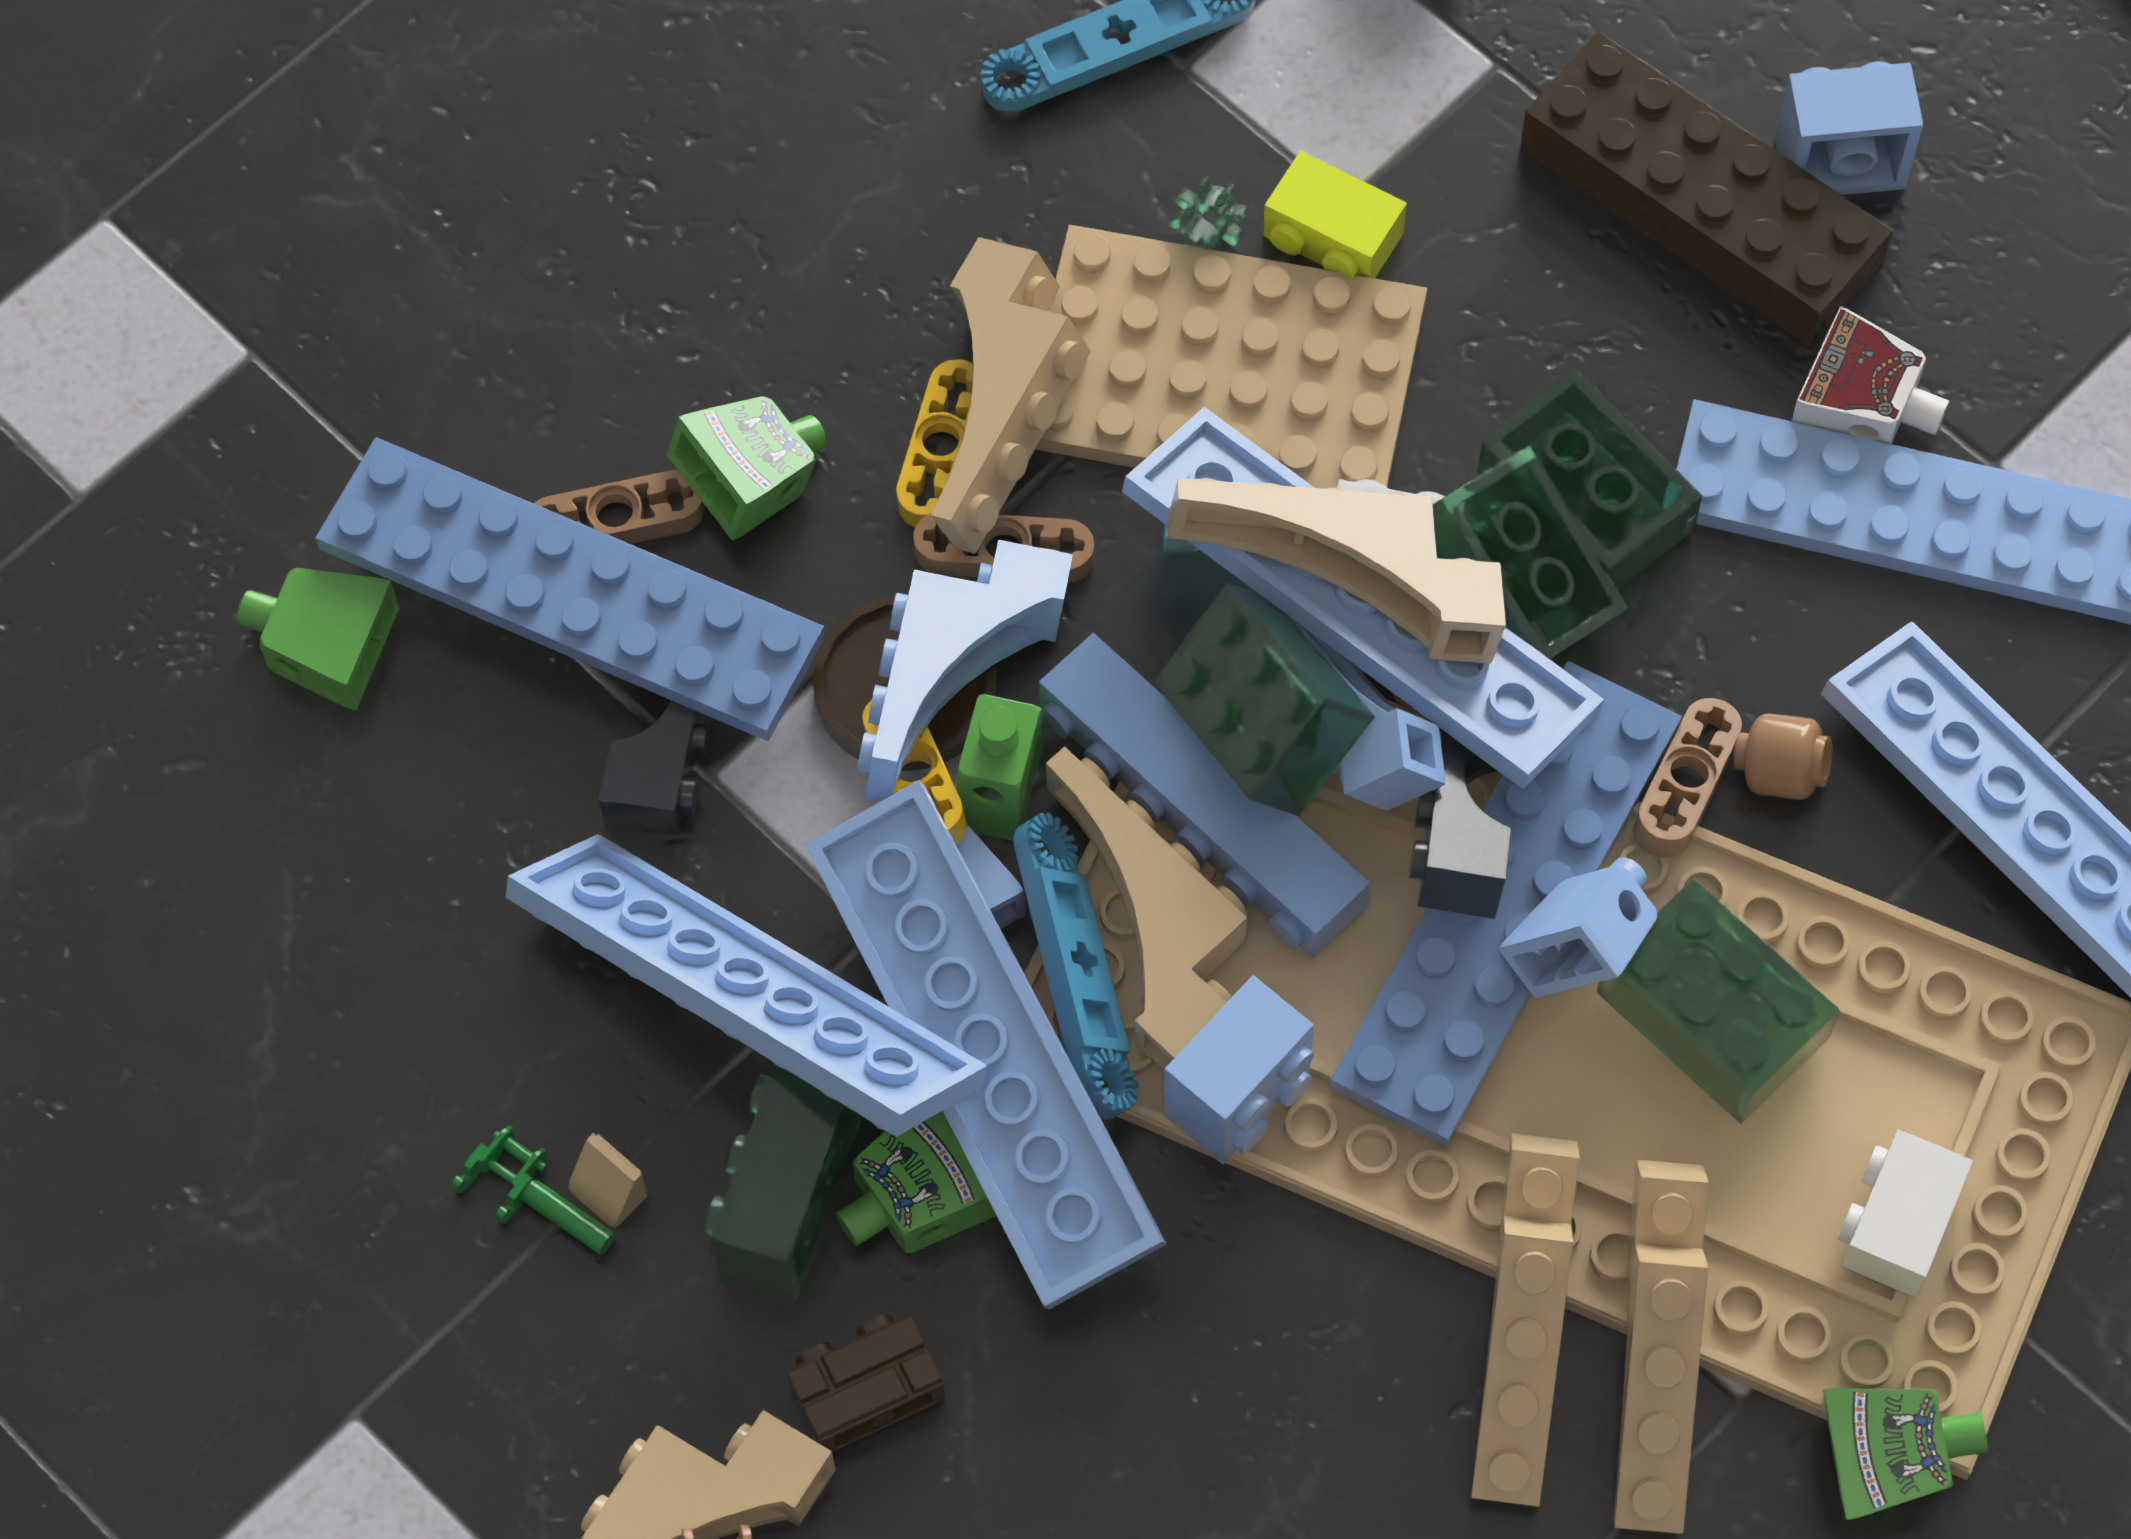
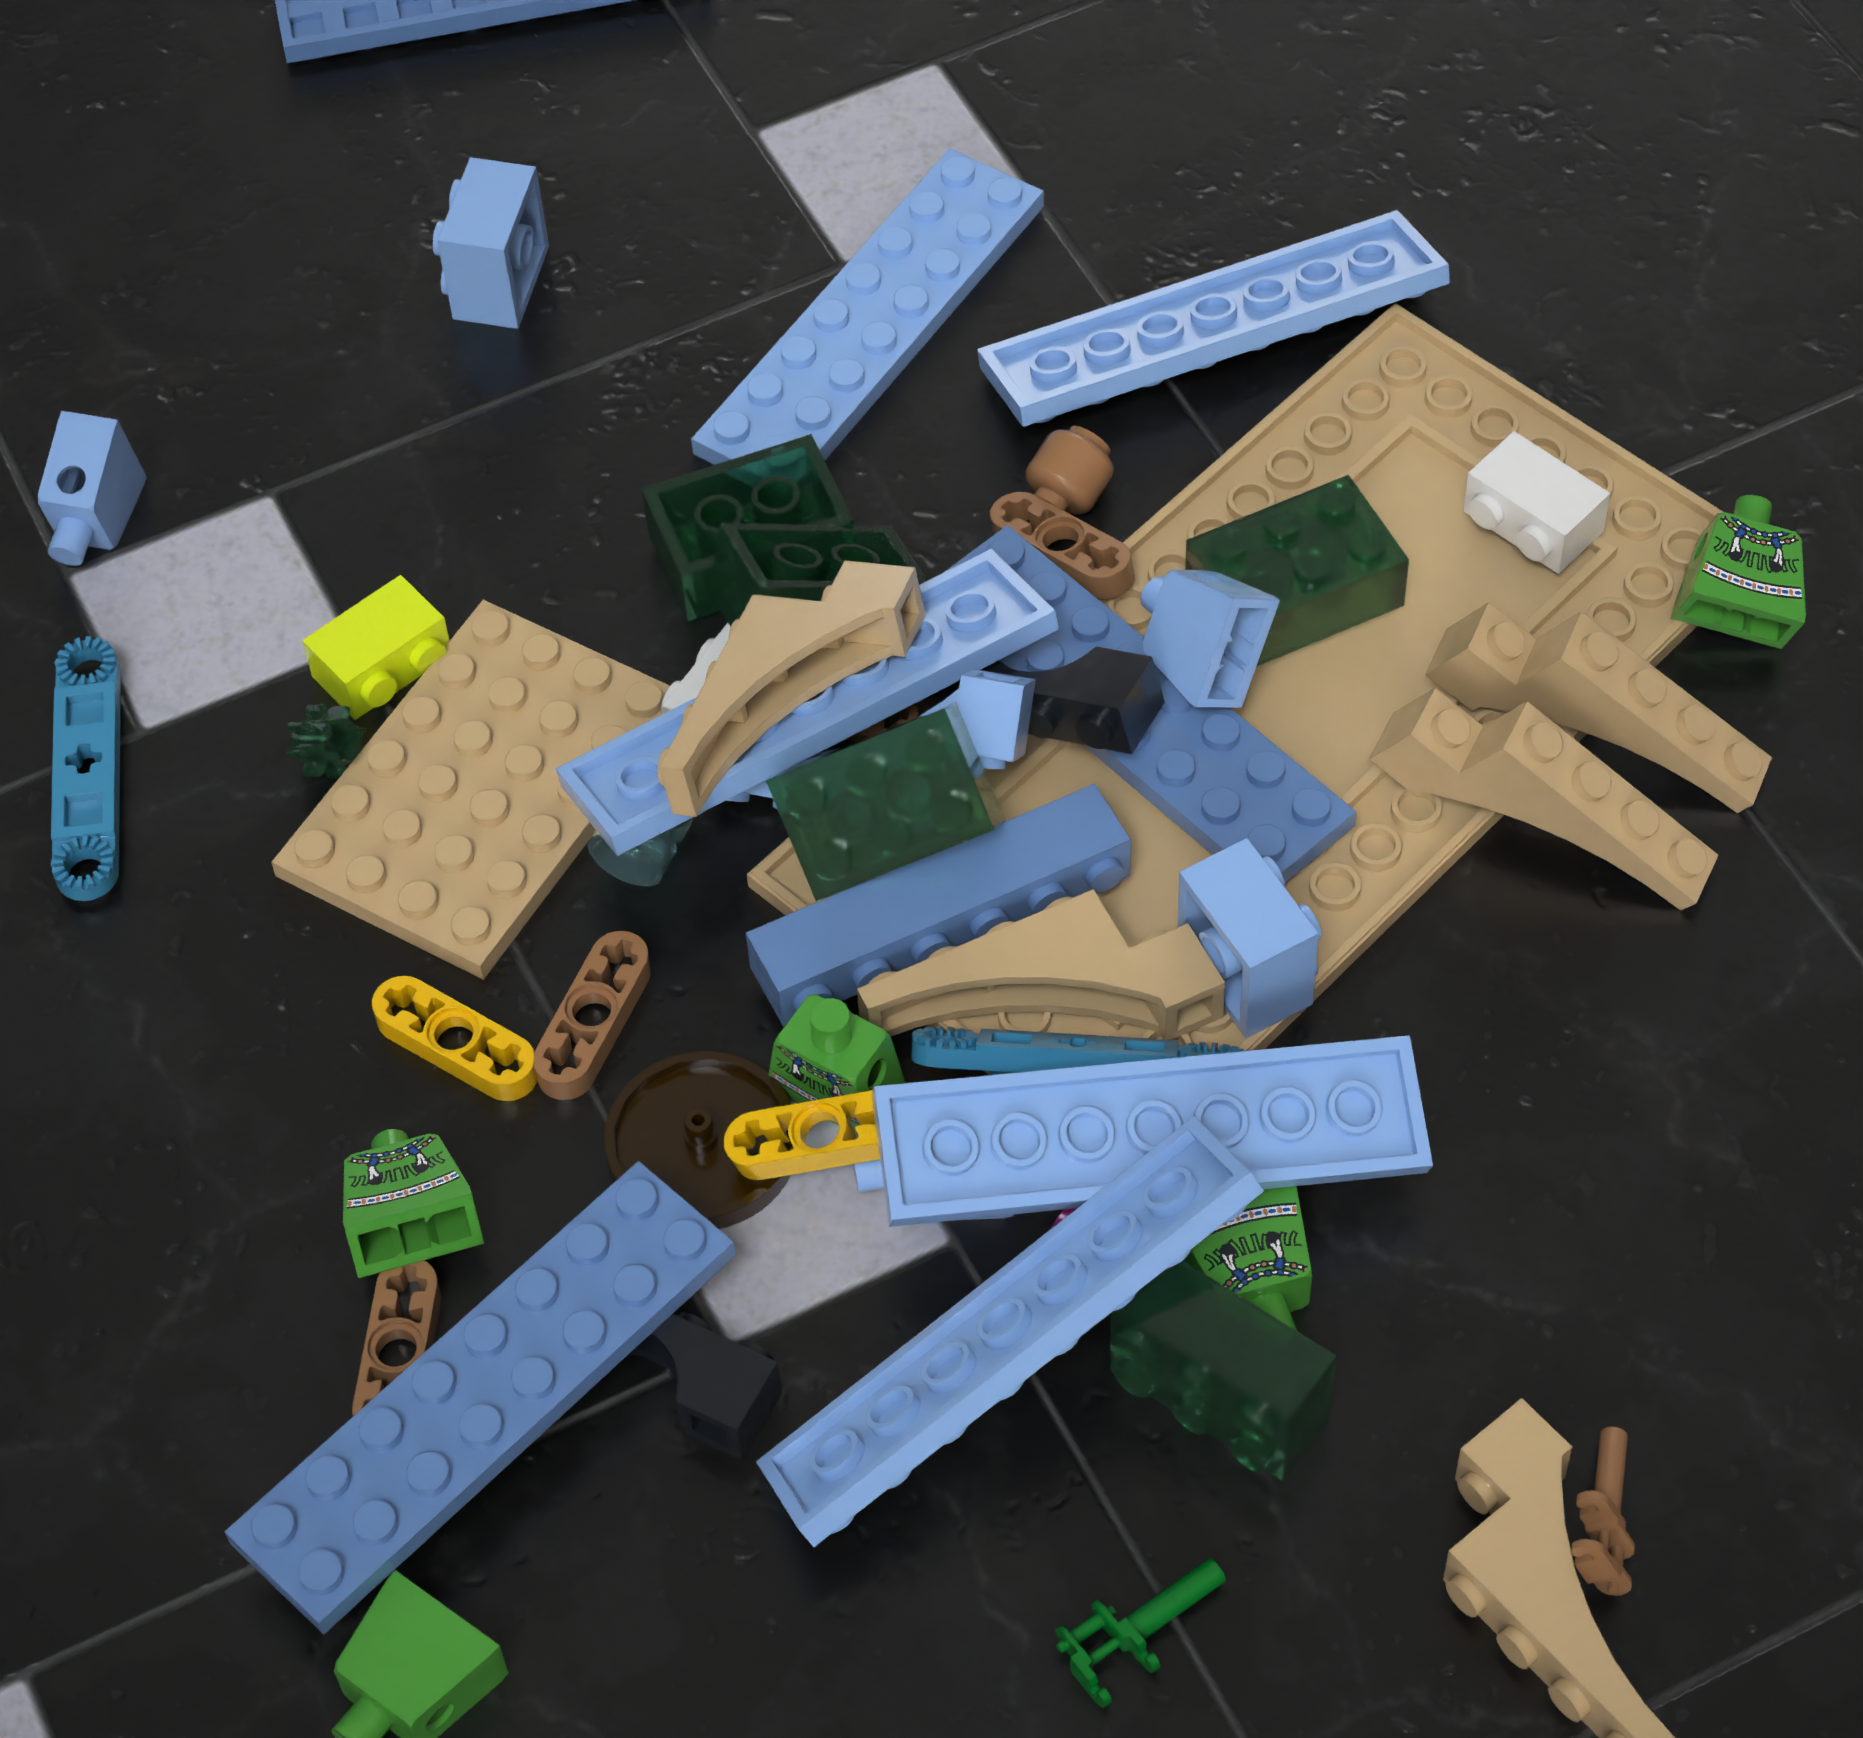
camera: 70 degrees left, 10 degrees down
(607, 1182) = (1151, 1548): tan slope -> none
(865, 1381) = (1445, 1362): dark brown brick -> none
(950, 637) = (697, 1072): light blue arch -> none
(1019, 380) = (419, 925): tan arch -> none
(1705, 189) = (488, 367): dark brown brick -> none
(1867, 384) = (733, 314): torso -> none

